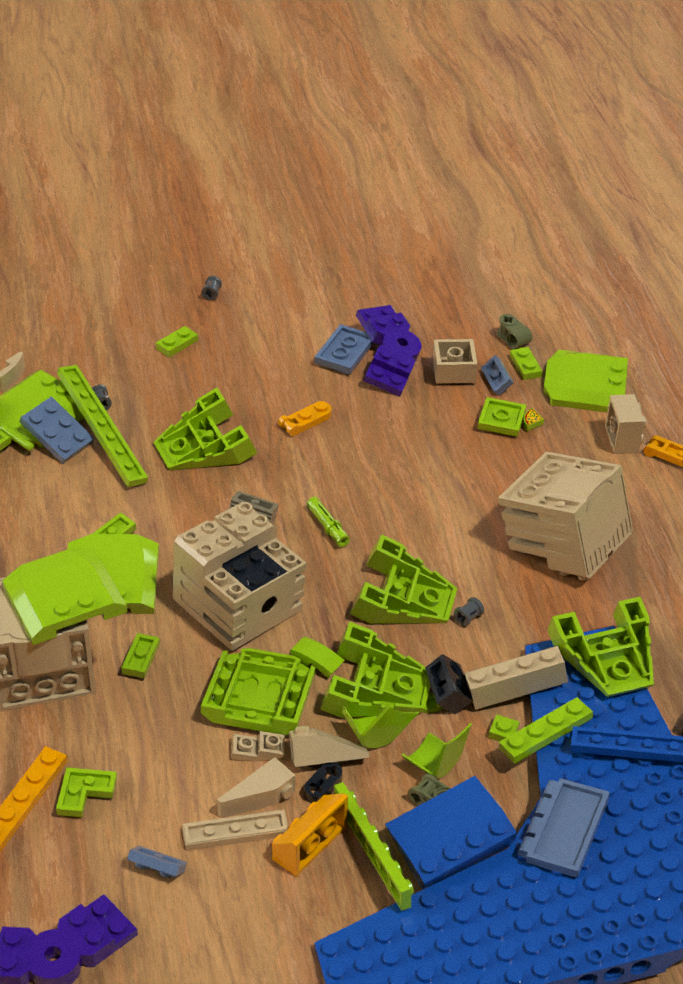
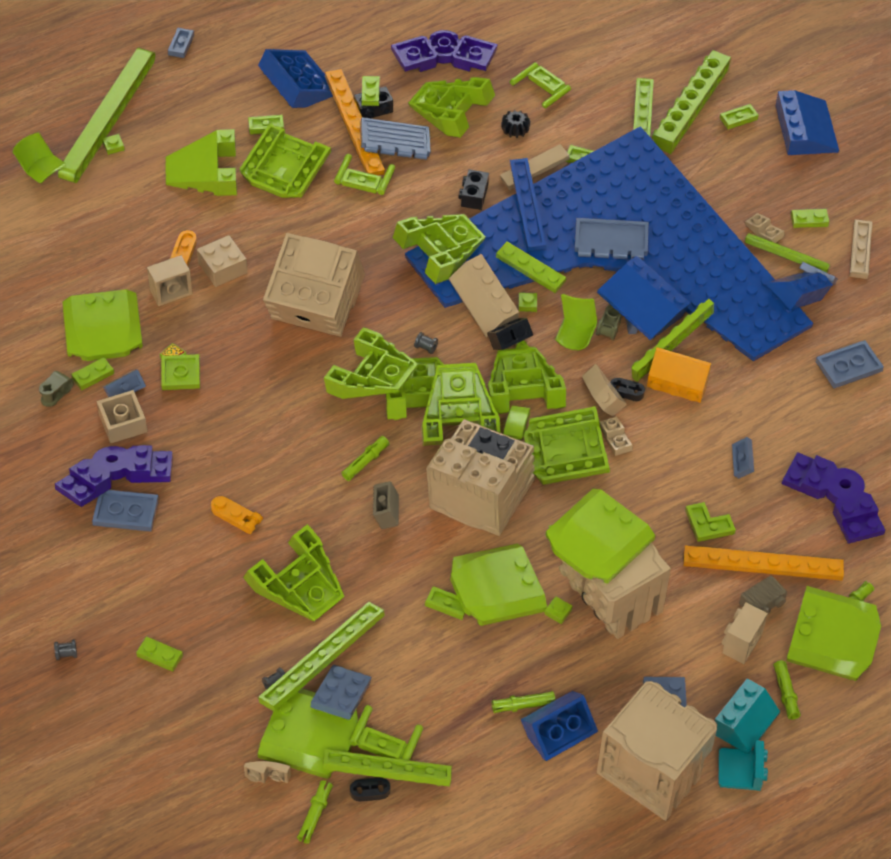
camera: 110 degrees left, 10 degrees up
(234, 829) = (690, 428): tan tile -> none
(259, 790) = (653, 418): tan slope -> none
(351, 587) = (455, 396): none -> lime wedge
(380, 729) = (578, 362): lime piece -> none
(431, 549) = (380, 372): none -> lime wedge
(648, 475) = (222, 261): none -> tan brick

